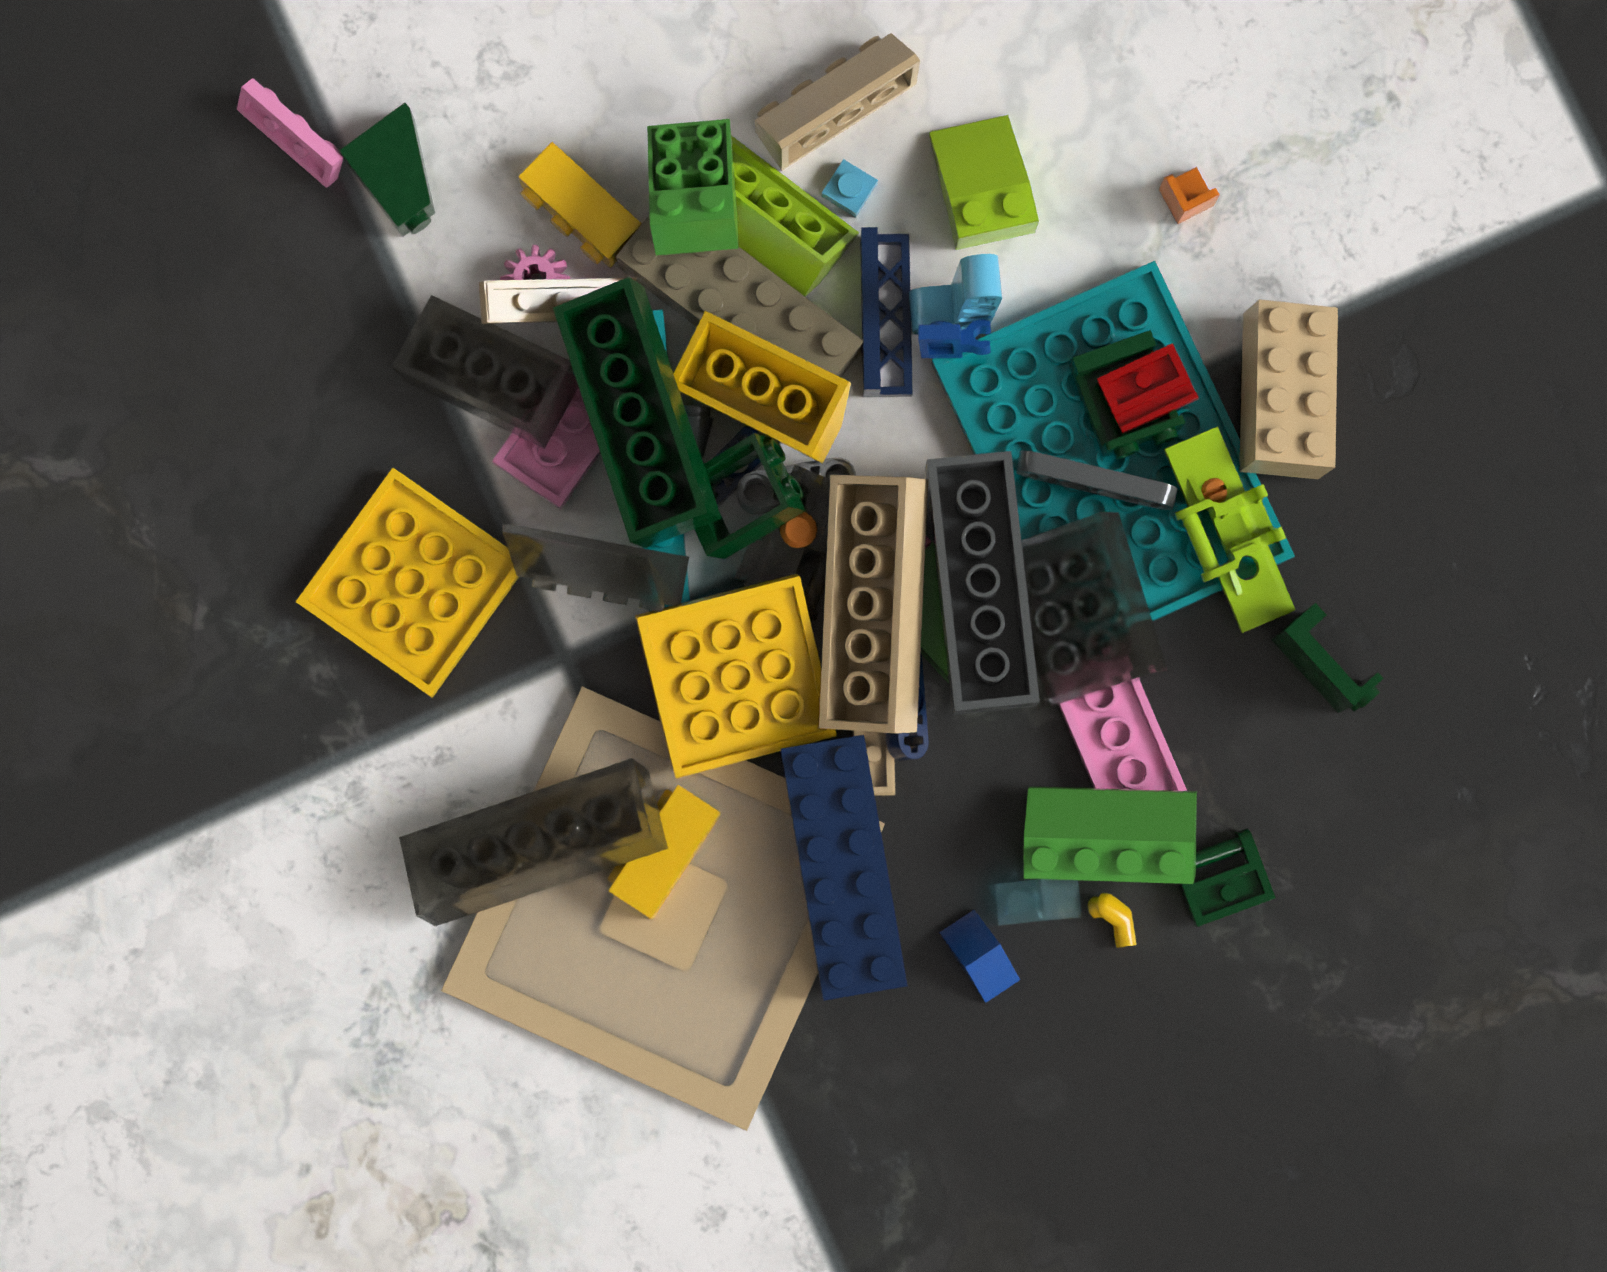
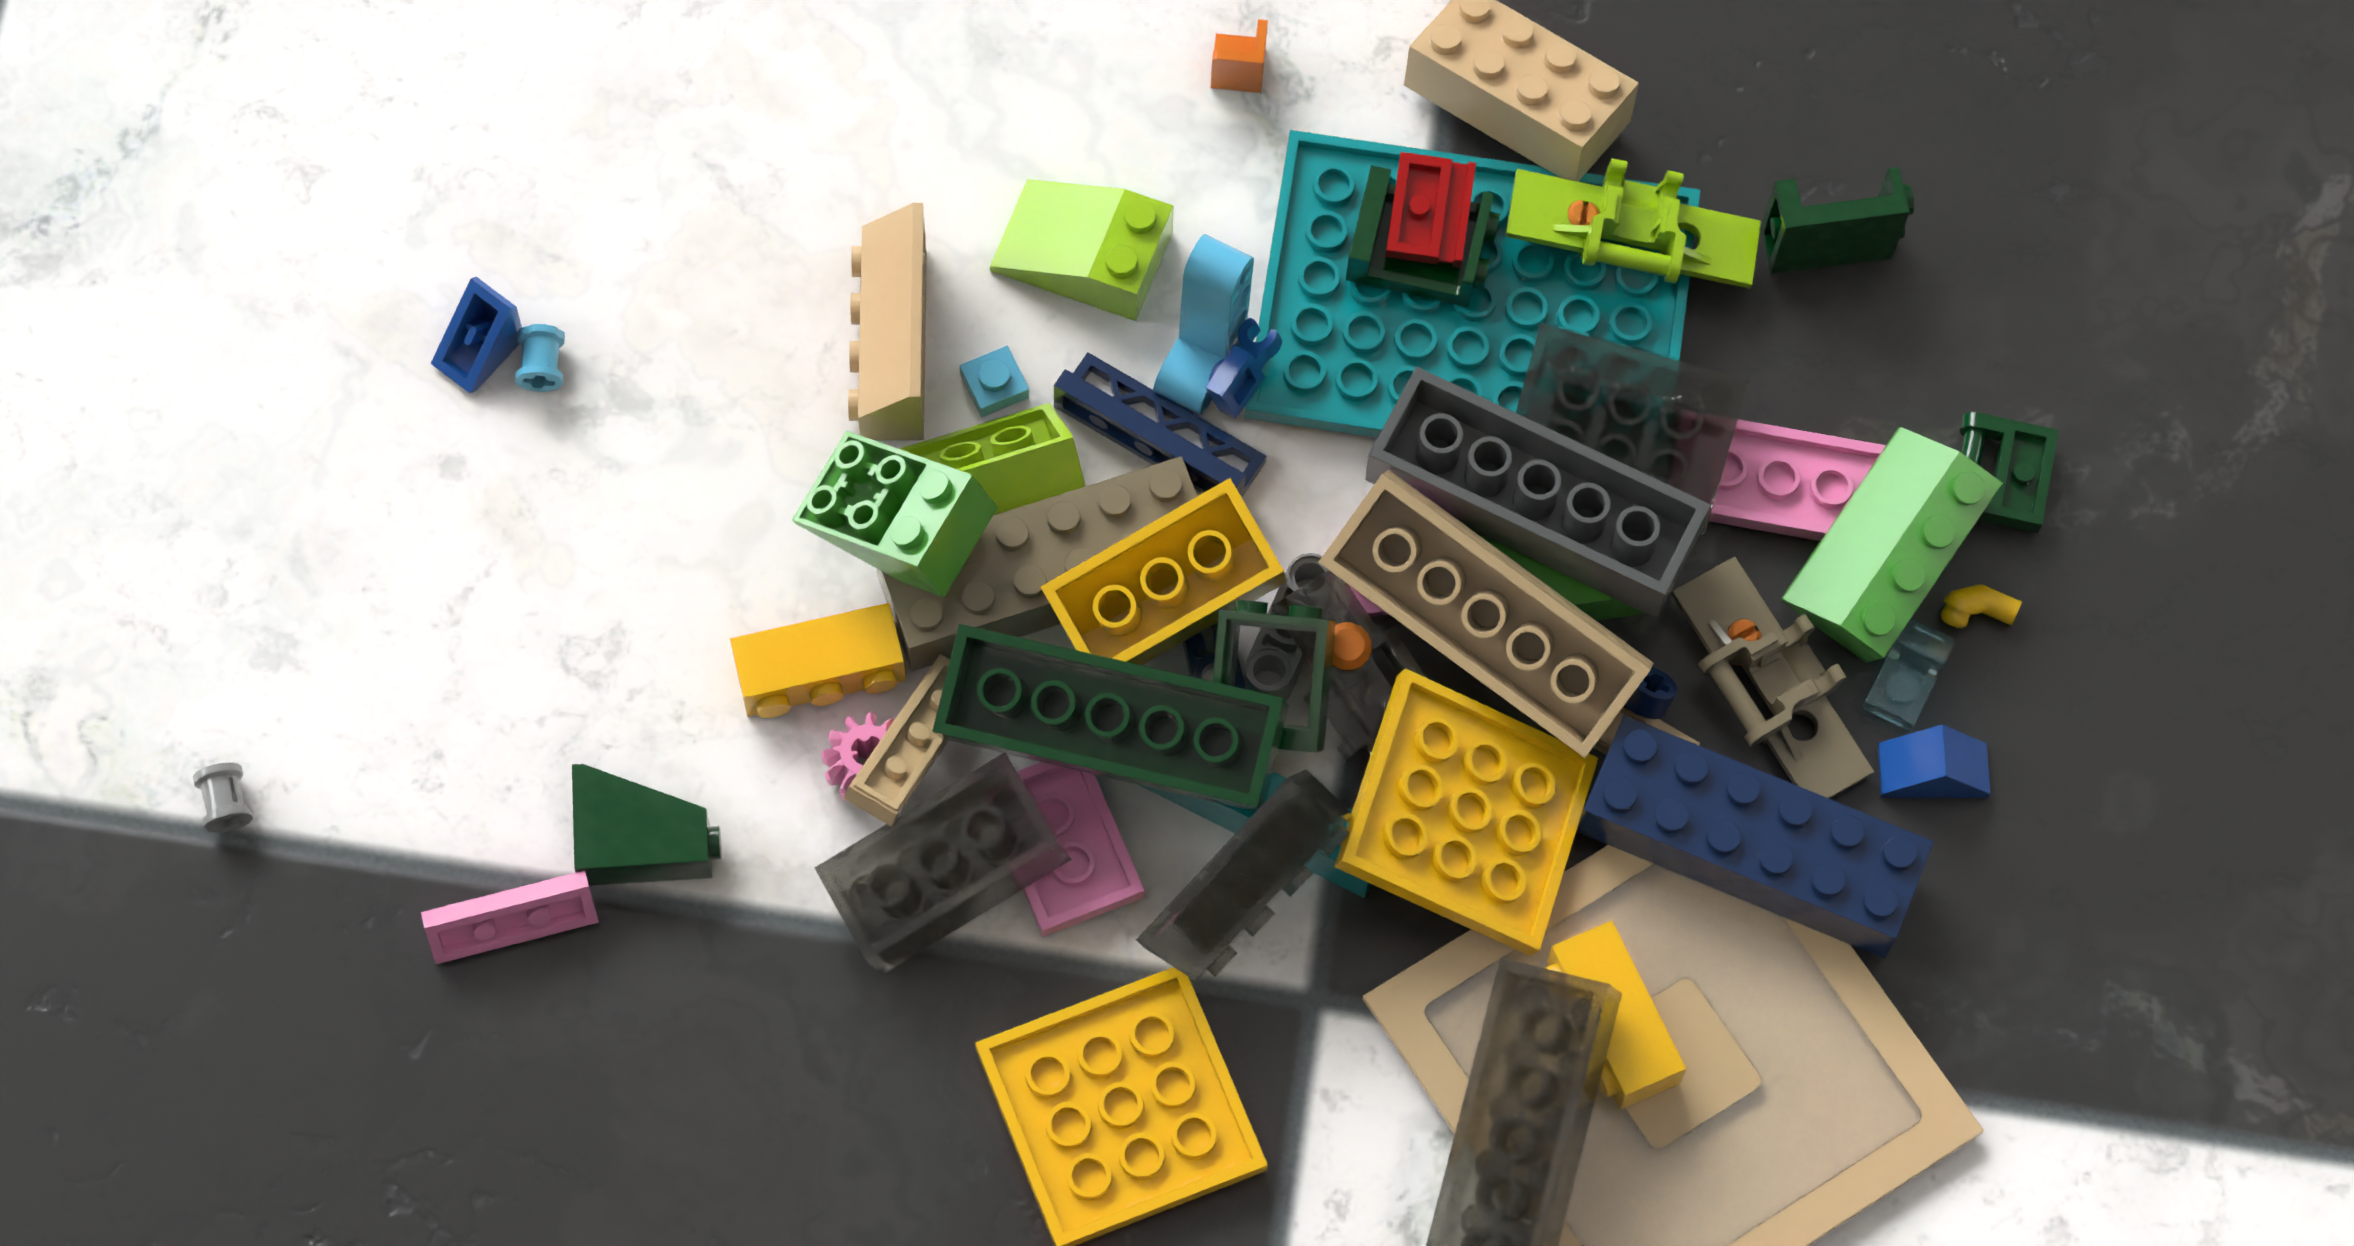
camera: 55 degrees left, 15 degrees down
(980, 821) = (1785, 671): none -> dark tan piece
(1096, 480) = (1499, 316): dark grey beam -> none

